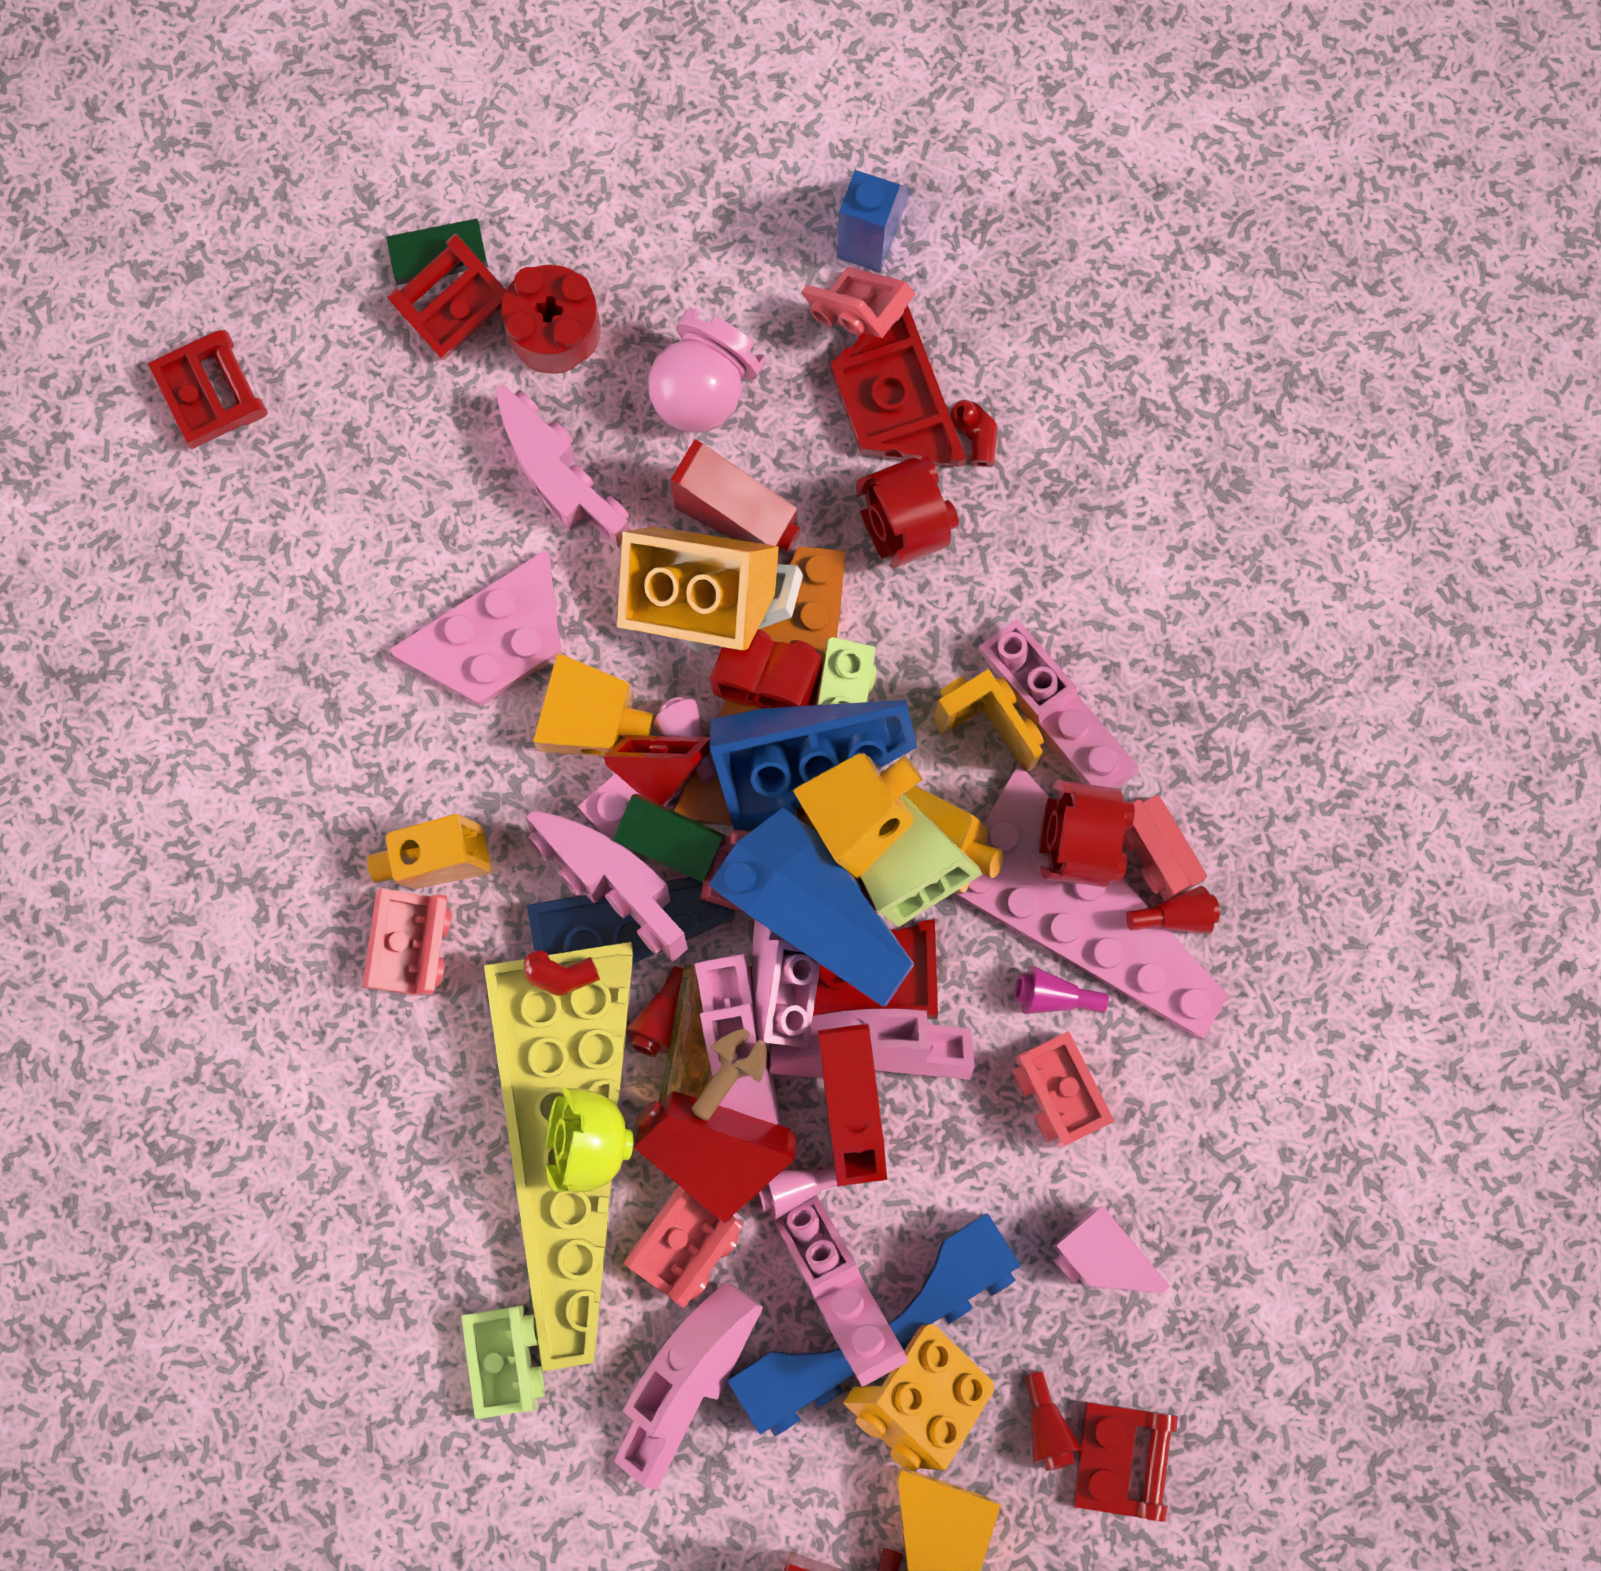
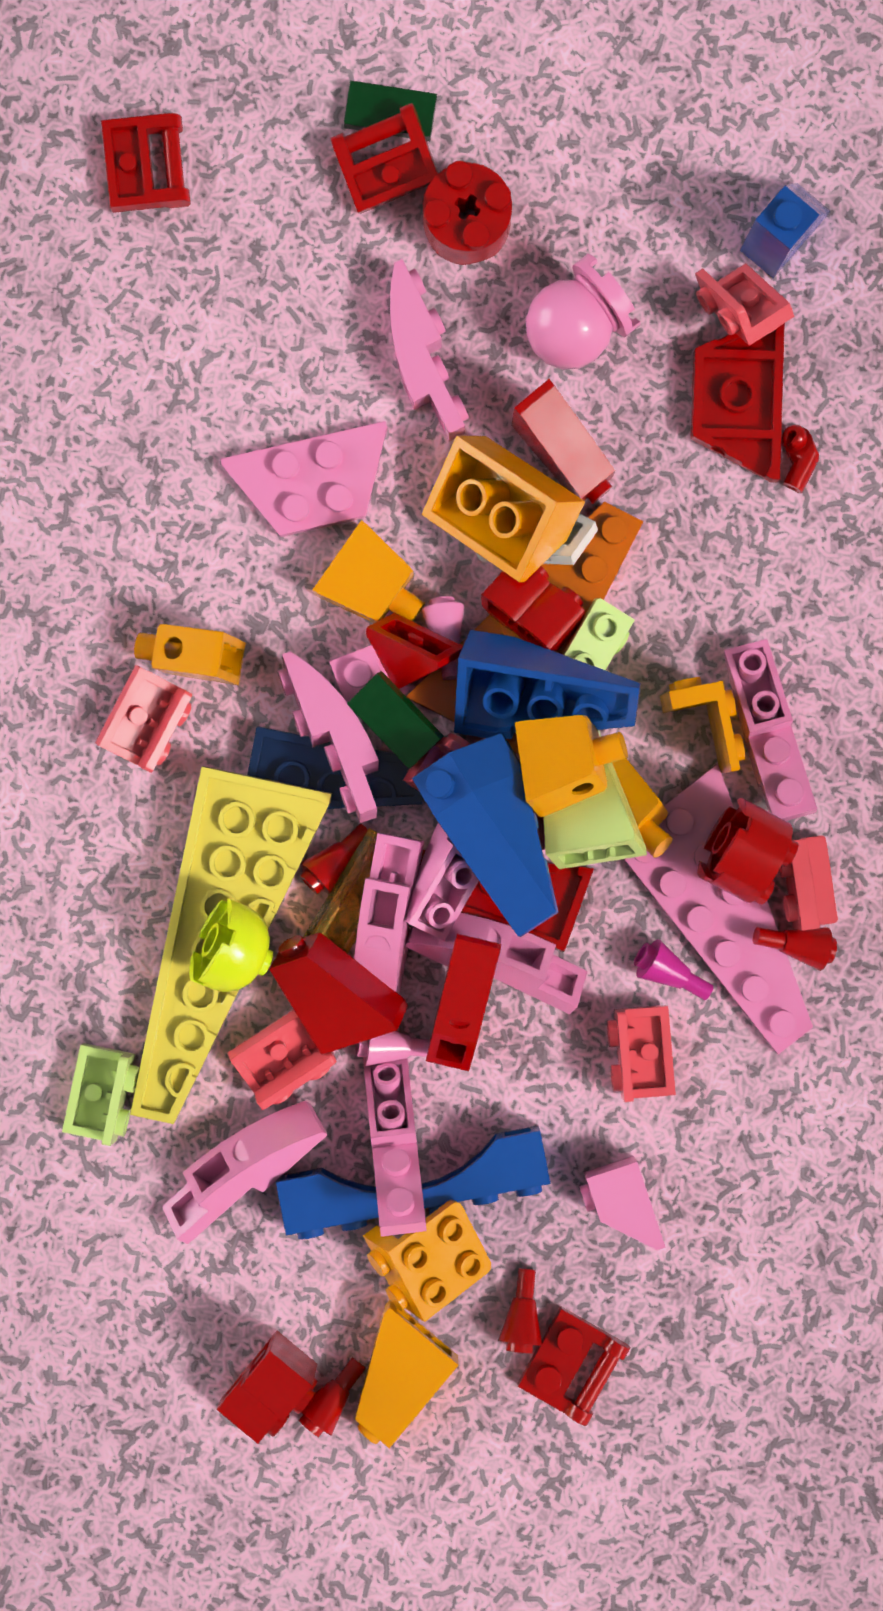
camera: 25 degrees right, 10 degrees up
(555, 978) = (257, 803): red arm -> none
(730, 1071) = (371, 938): medium nougat bar -> none
(906, 511) = (709, 508): red brick -> none

